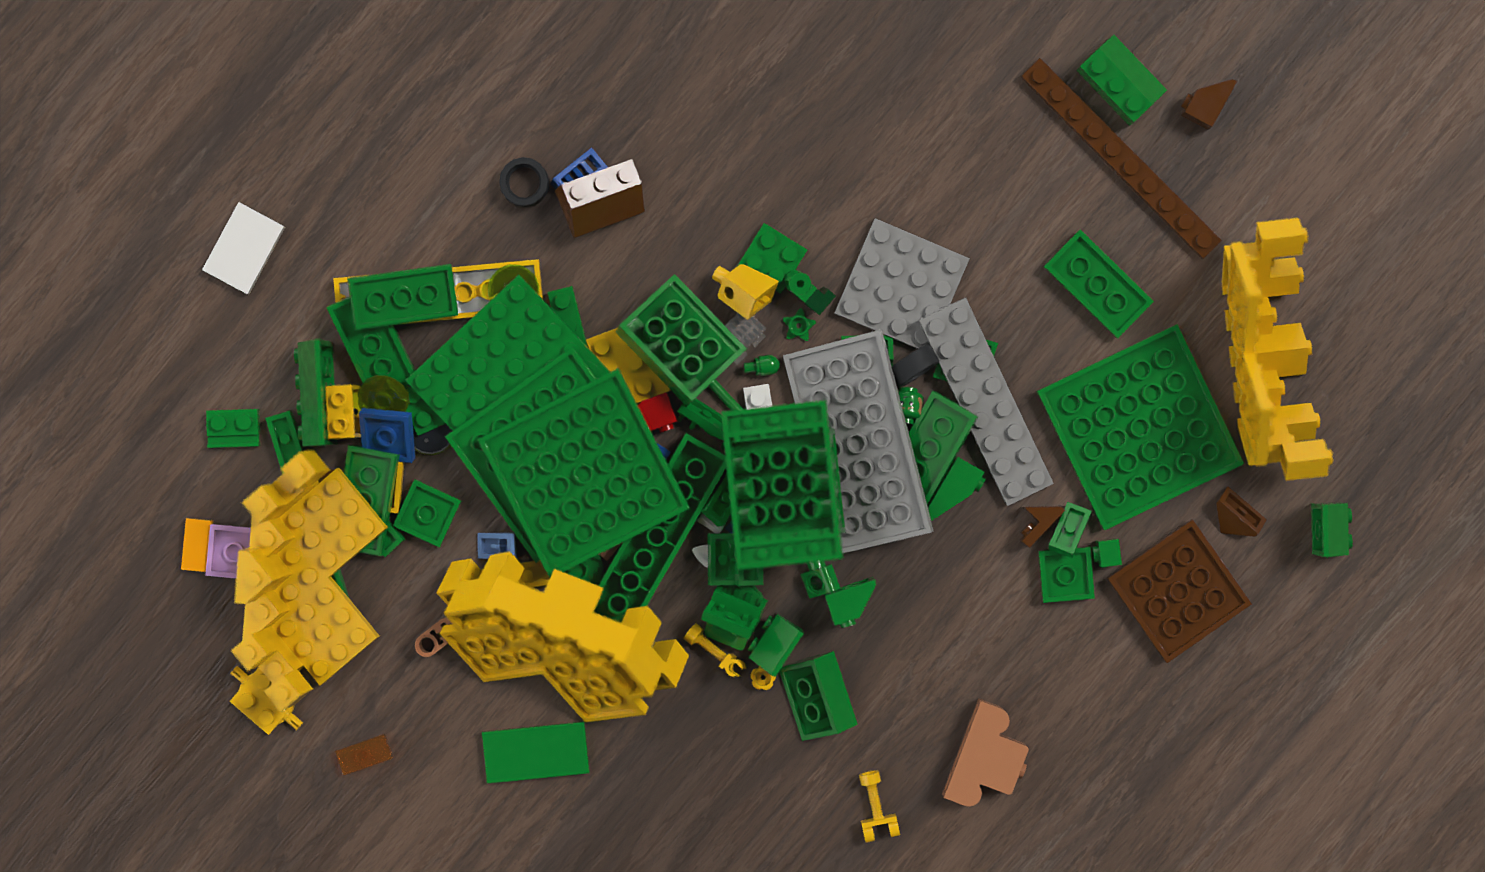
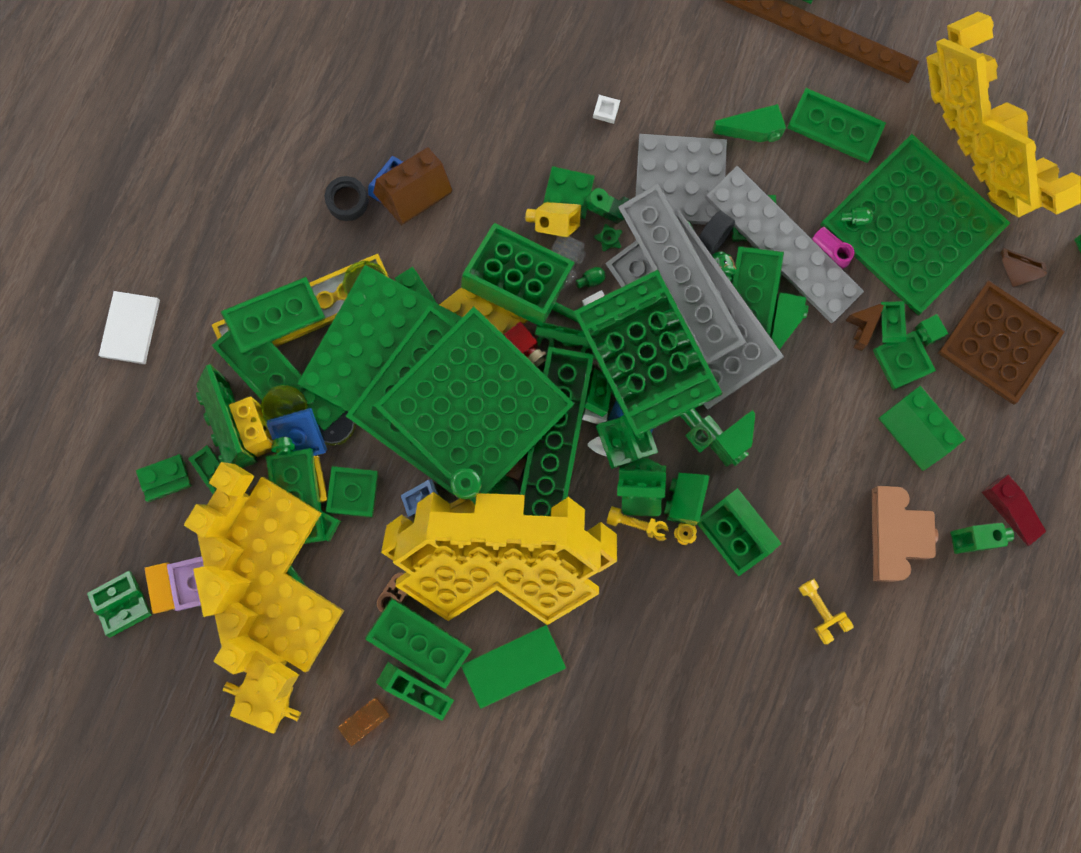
camera: 20 degrees left, 10 degrees down
(149, 546) = (119, 604): none -> green slope
(369, 444) = (282, 446): none -> green plate
(425, 742) = (414, 691): none -> green slope
(445, 697) = (418, 643): none -> green plate
(545, 557) = (465, 484): none -> green head
(670, 437) = (537, 358): none -> tan plate
(848, 176) = (606, 109): none -> white plate
(856, 403) = (683, 272): none -> light grey plate
(1009, 254) = (755, 125): none -> green slope
(1037, 420) = (832, 245): none -> dark pink piece
(1054, 654) = (921, 428): none -> green slope
(1069, 791) = (981, 538): none -> green torso
(1077, 400) = (858, 216): none -> green cylinder
(1119, 773) = (1015, 508): none -> dark red slope

